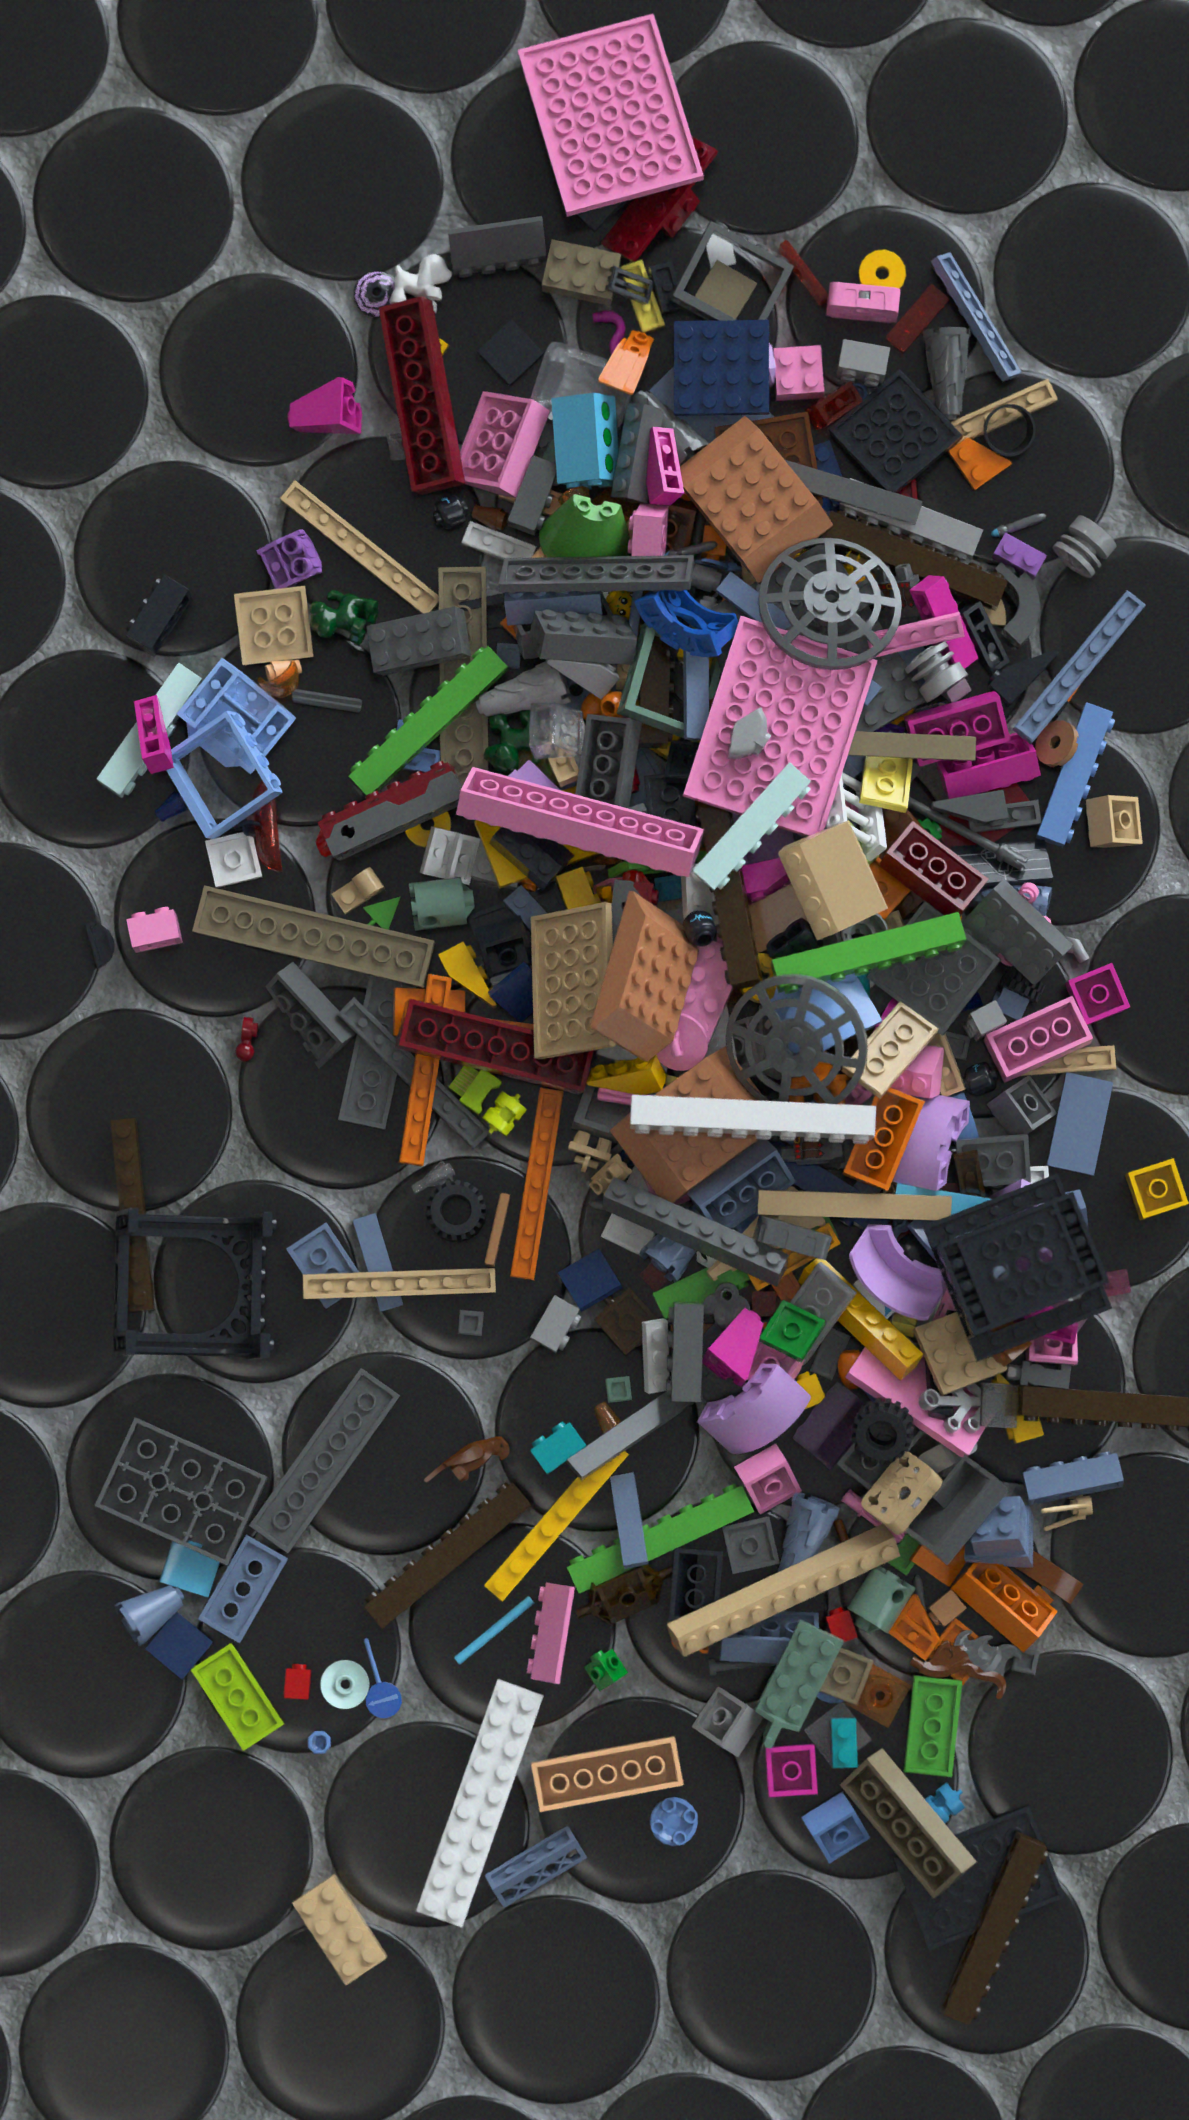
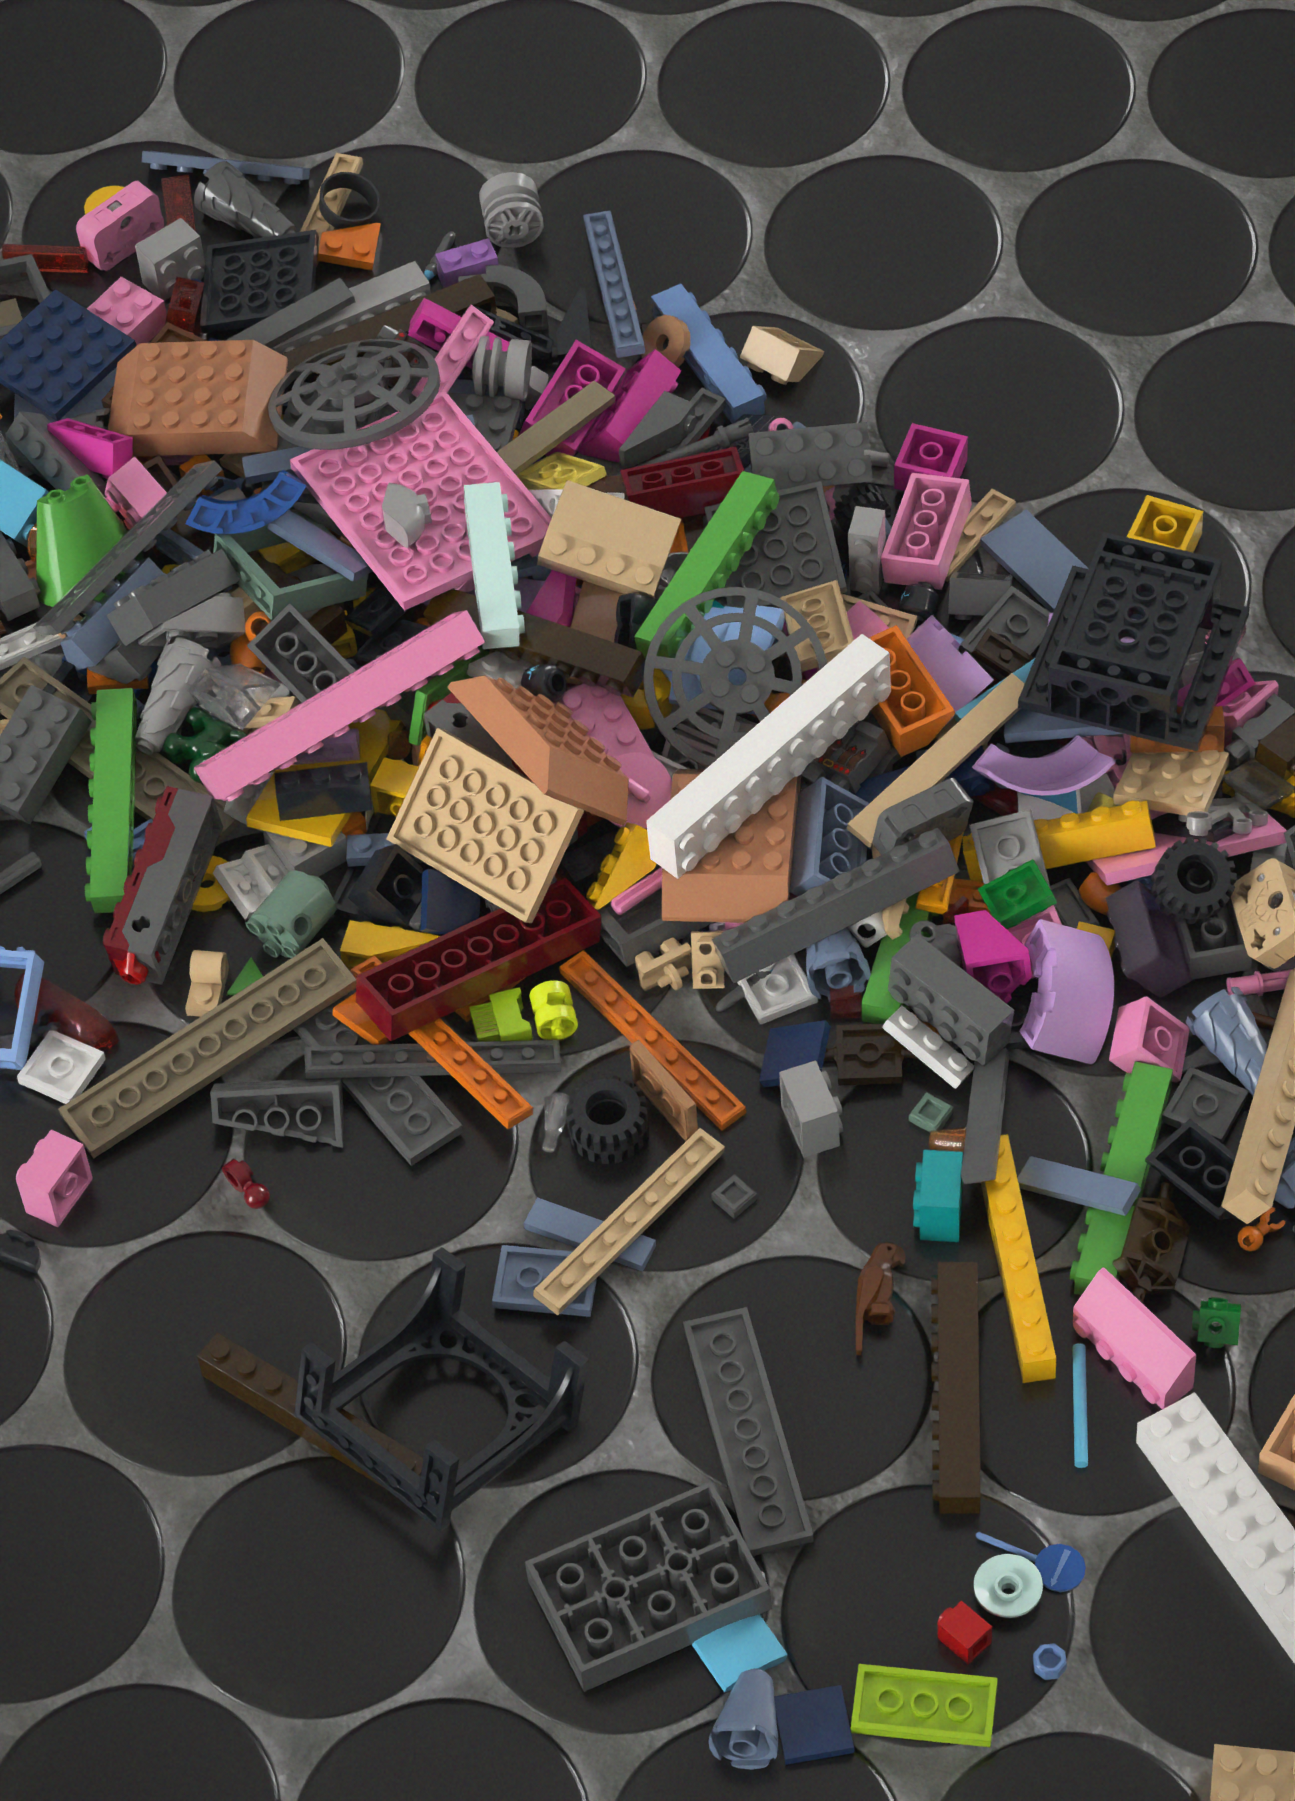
camera: 40 degrees left, 30 degrees down
(226, 1592) = (798, 1630): sand blue plate -> none

